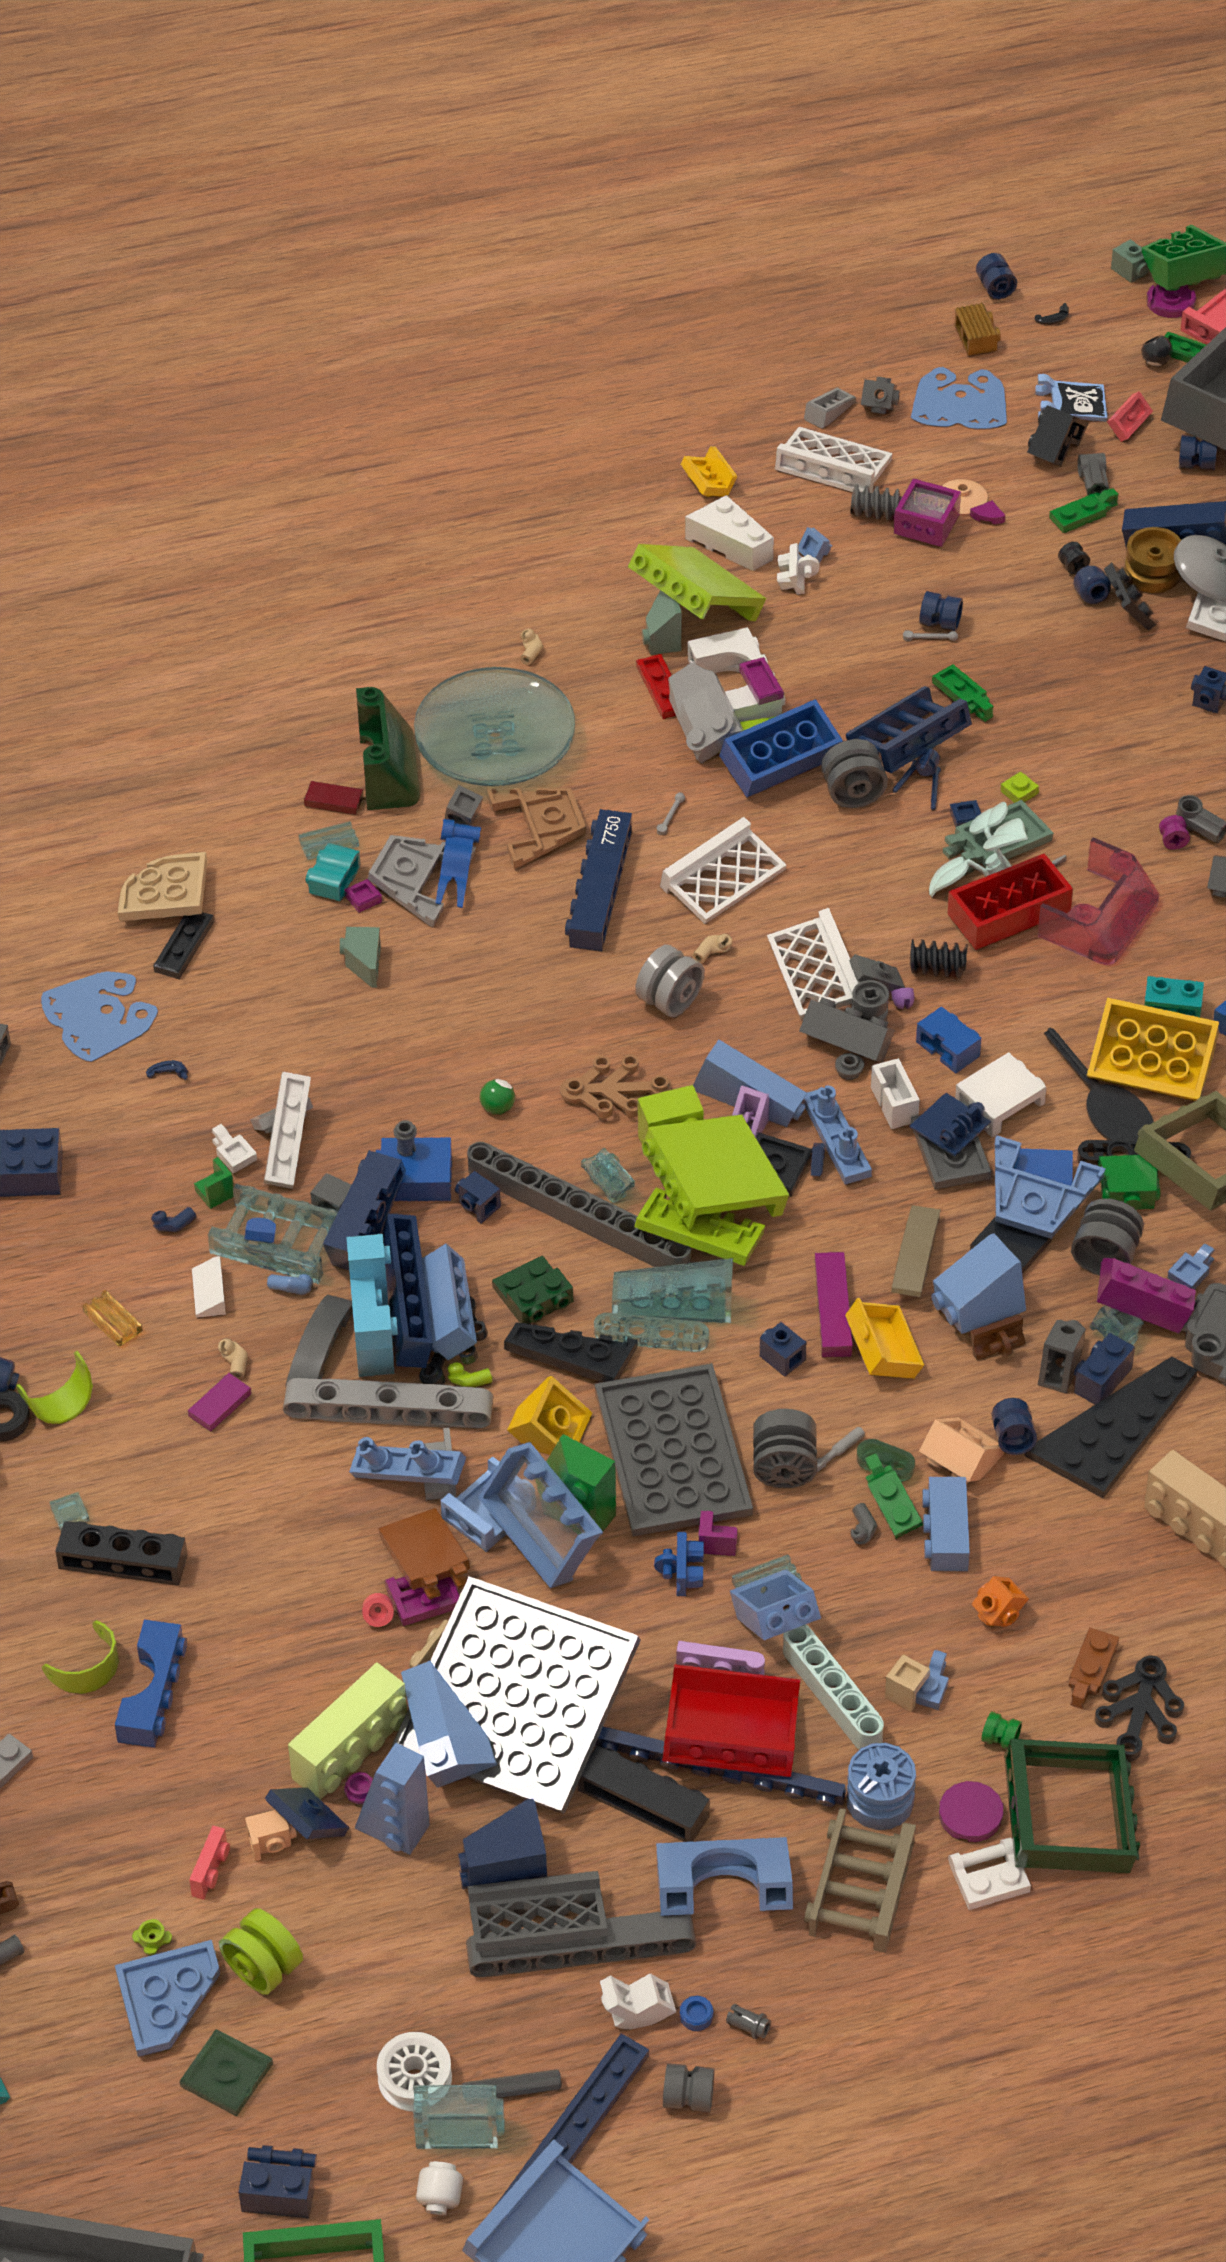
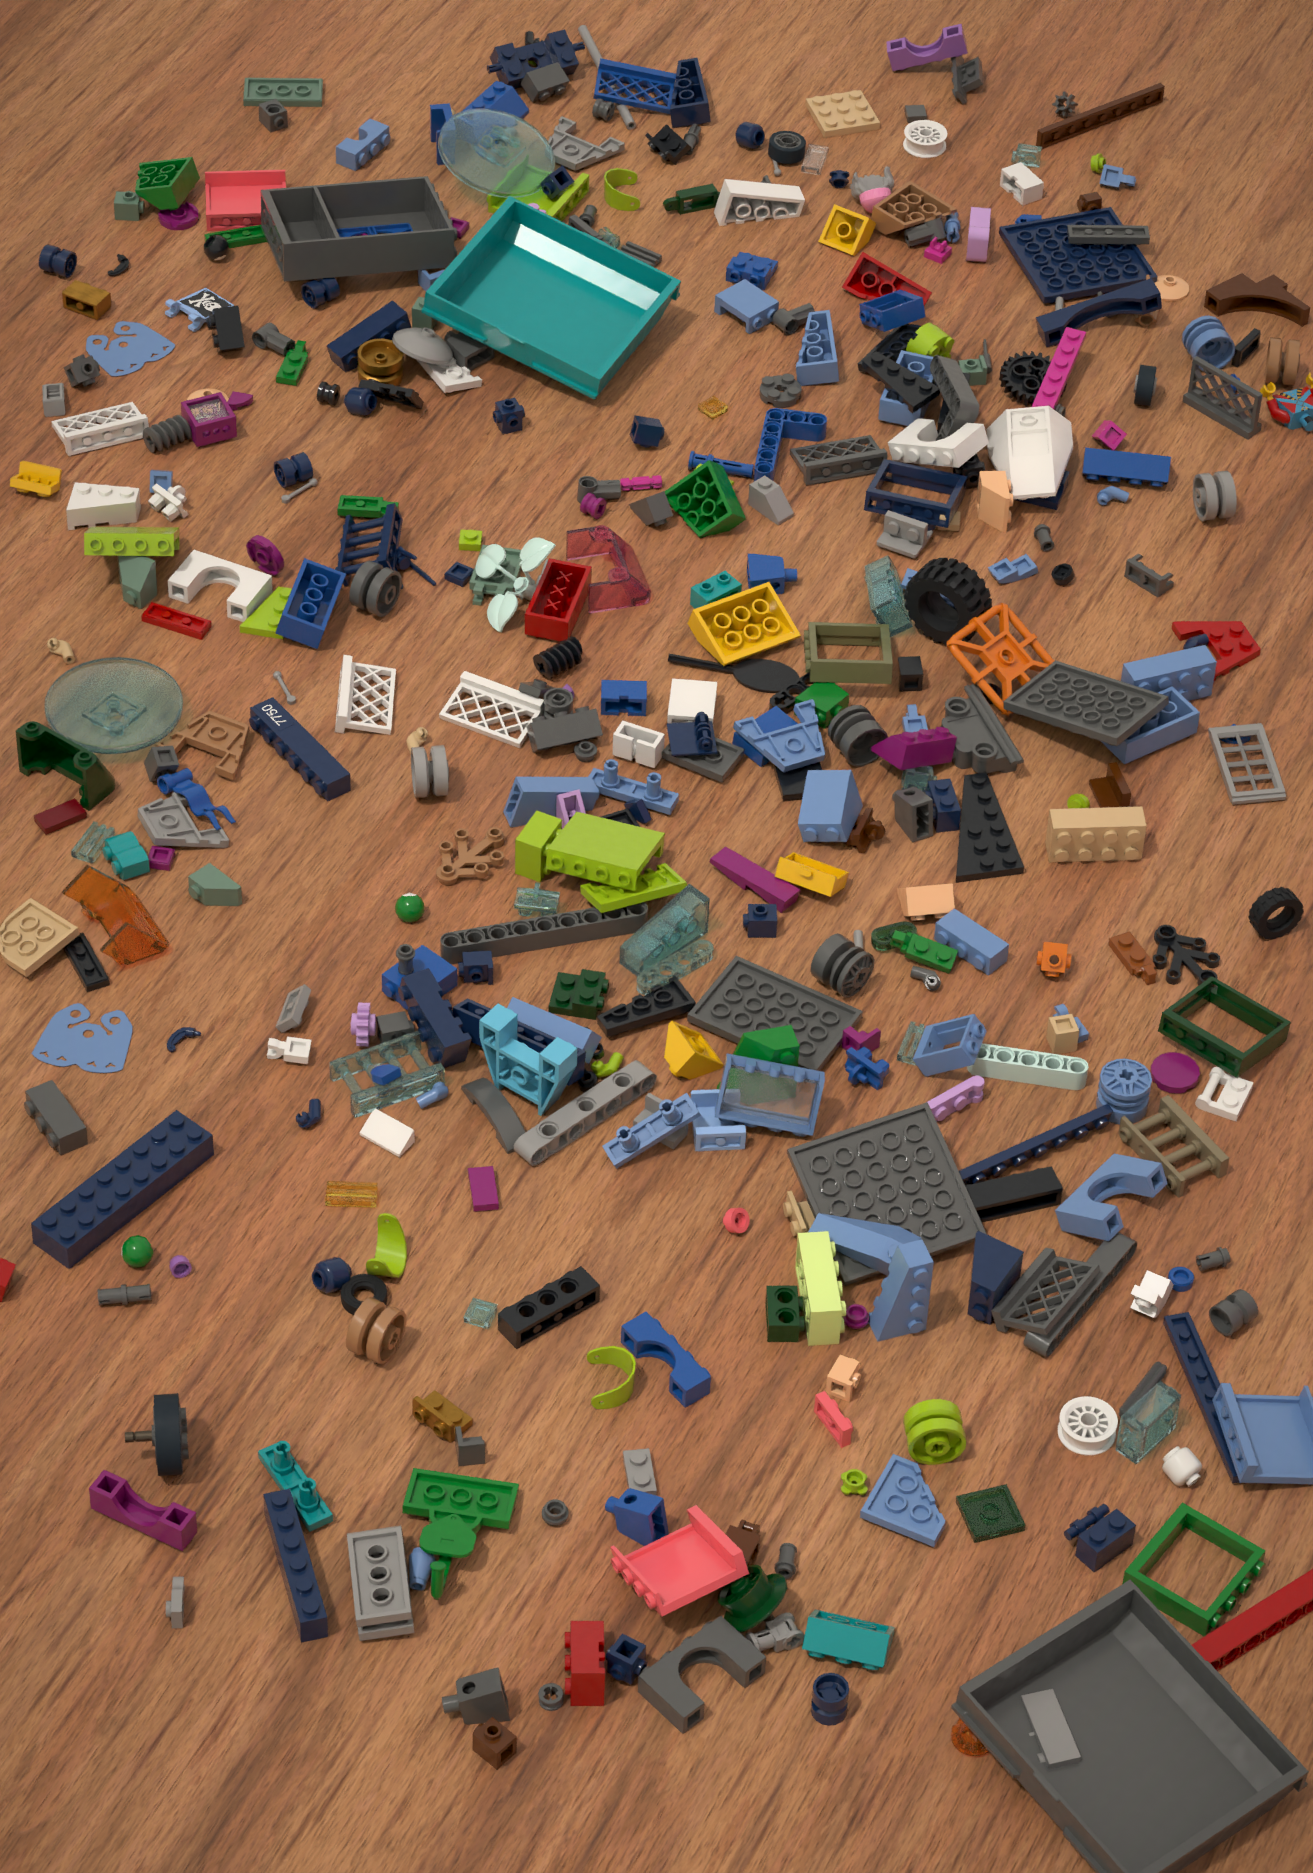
camera: 50 degrees left, 5 degrees down
(217, 1186) = (310, 1074): green panel -> none
(235, 1356) = (457, 1157): tan arm -> none
(266, 923) = (121, 914): none -> clear orange windscreen
(287, 1130) = (318, 1010): white plate -> none
(290, 1724) = (782, 1313): none -> dark green brick
(306, 1813) = (854, 1346): dark blue plate -> none
(308, 1171) = (363, 1024): none -> lavender gear
(415, 1606) = (754, 1195): magenta plate -> none
(426, 1551) = (723, 1169): dark orange tile -> none
(702, 710) = (234, 613): light grey slope -> none
(731, 1720) = (1007, 1120): red panel -> none
(761, 681) = (248, 572): magenta tile -> none
(802, 675) = (266, 555): none -> magenta tile
(916, 1251) = (763, 819): dark tan slope -> none
(1000, 1730) = (1139, 1020): green wheel -> none
(1014, 1426) = (940, 866): dark blue wheel -> none
(1130, 416) = (250, 295): coral plate -> none

